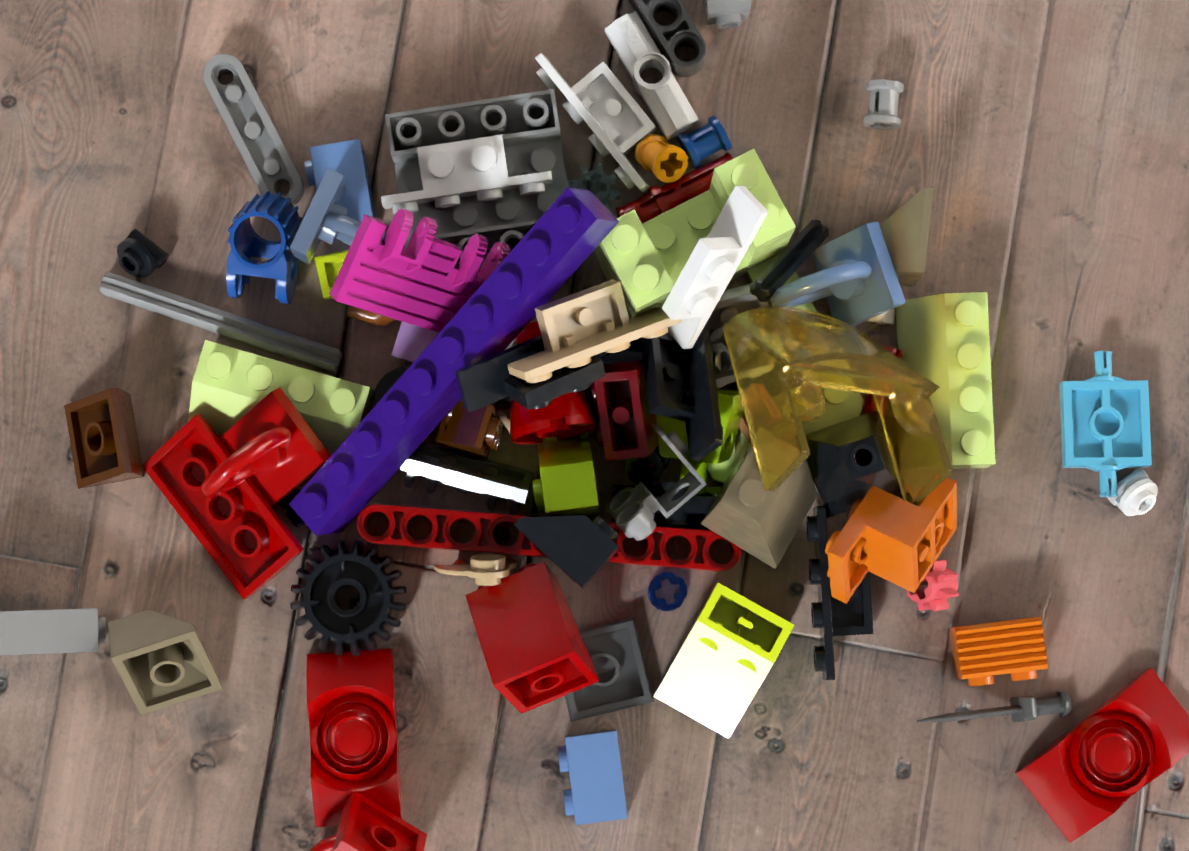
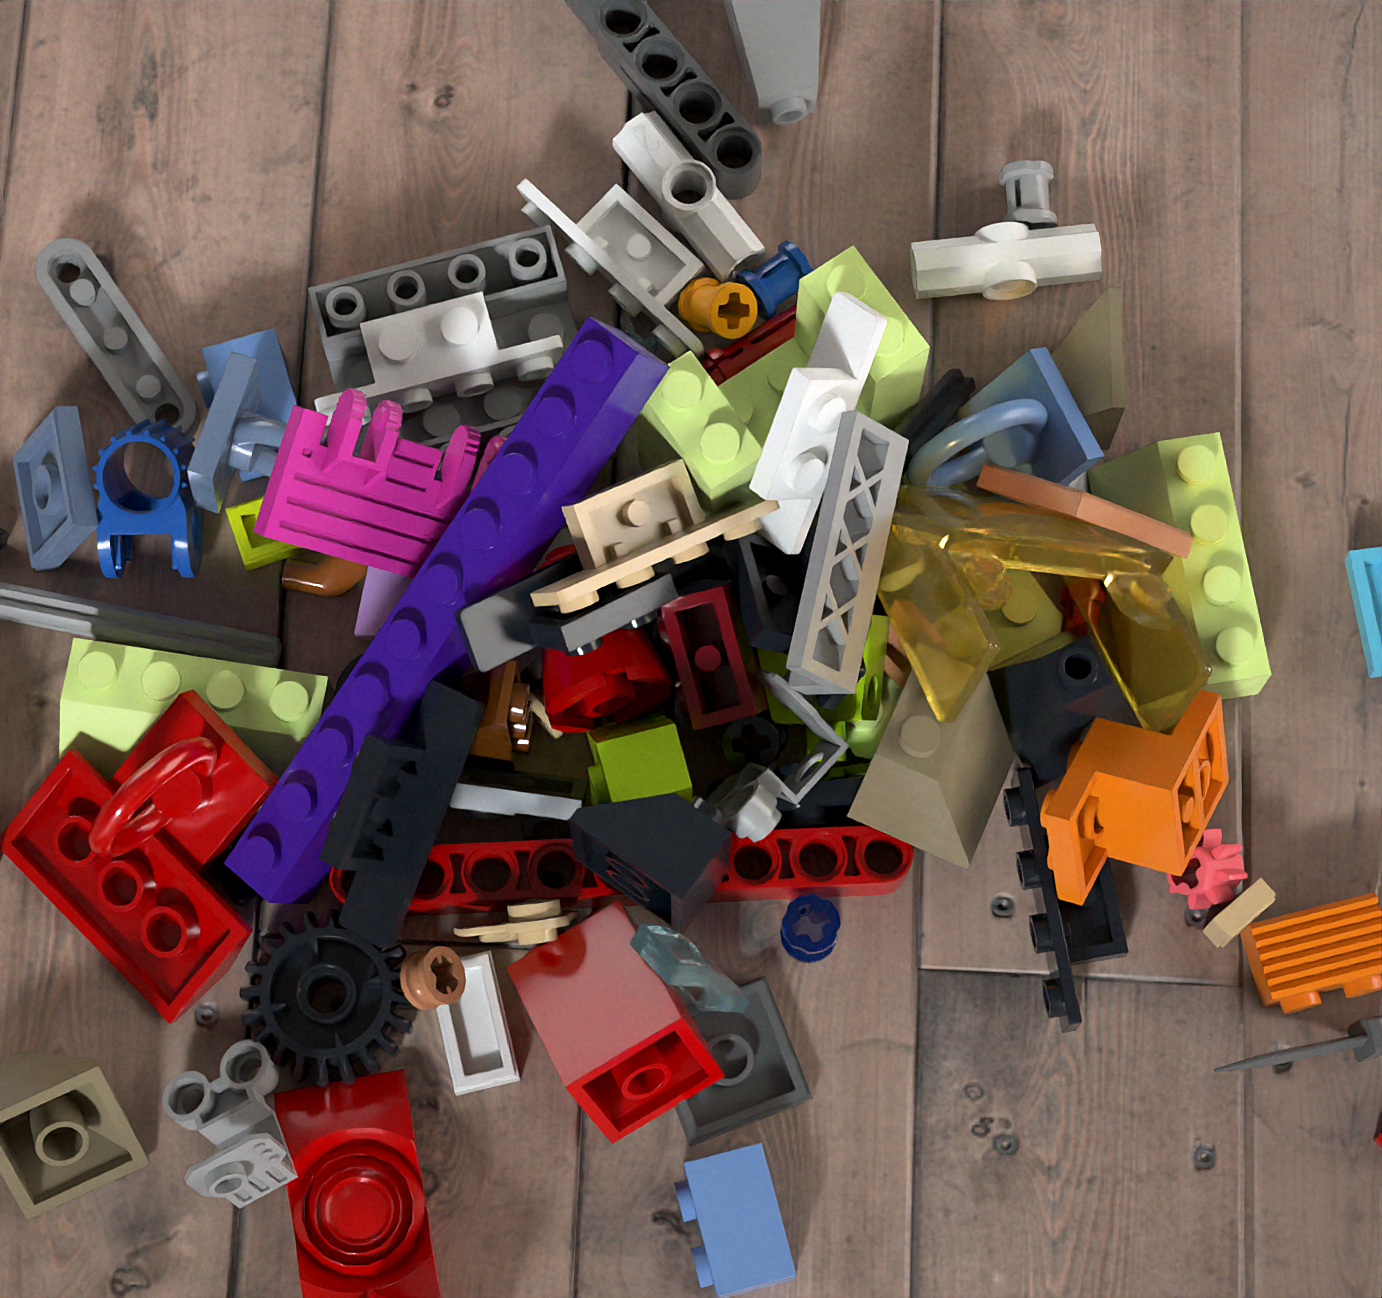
camera: 10 degrees left, 10 degrees down
(202, 233) = (55, 489): none -> sand blue tile
(278, 668) = (235, 1118): none -> light grey piece
(405, 488) = (396, 809): none -> black bracket
(417, 595) = (419, 982): none -> nougat bush
(440, 623) = (478, 1031): none -> white tile
(584, 612) = (685, 964): none -> clear light blue slope
(720, 364) = (846, 557): none -> light grey fence
(723, 660) = (909, 1018): slope -> none
(862, 147) = (1005, 261): none -> white piece
(887, 341) = (1083, 507): none -> nougat tile
(951, 617) = (1240, 913): none -> tan tile

